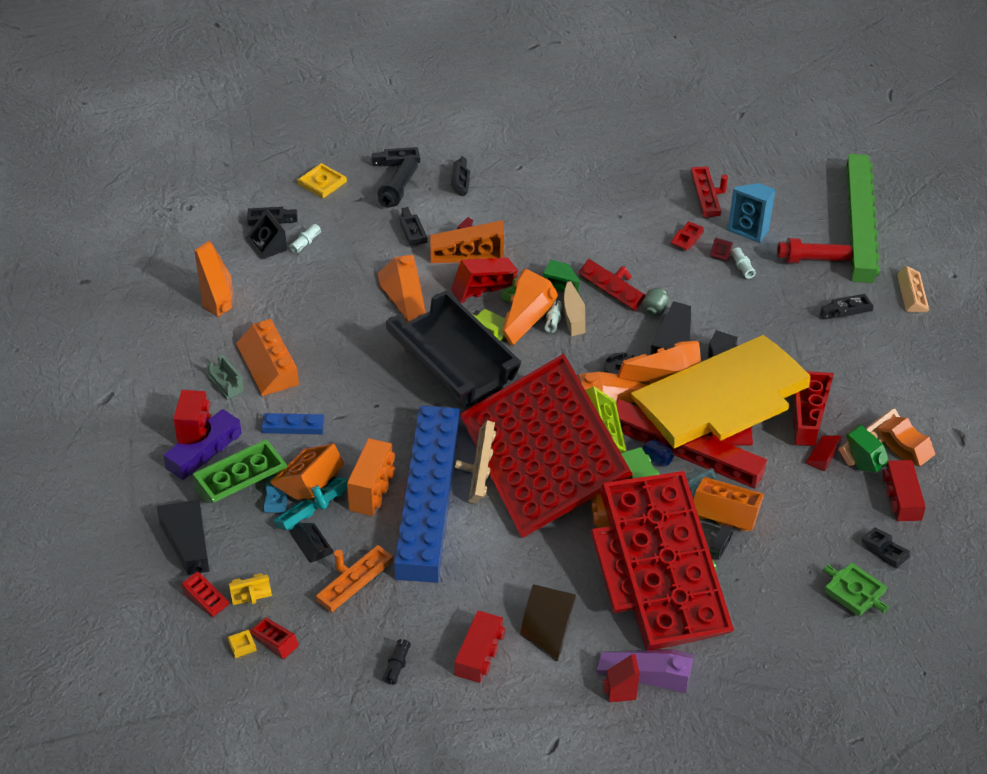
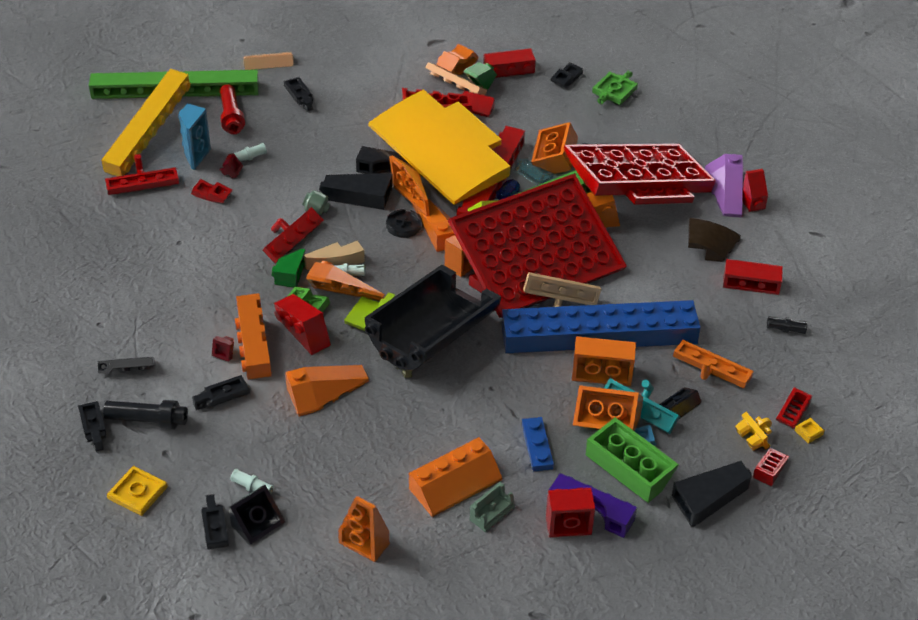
camera: 100 degrees left, 0 degrees up
(792, 189) = (146, 123): none -> yellow brick

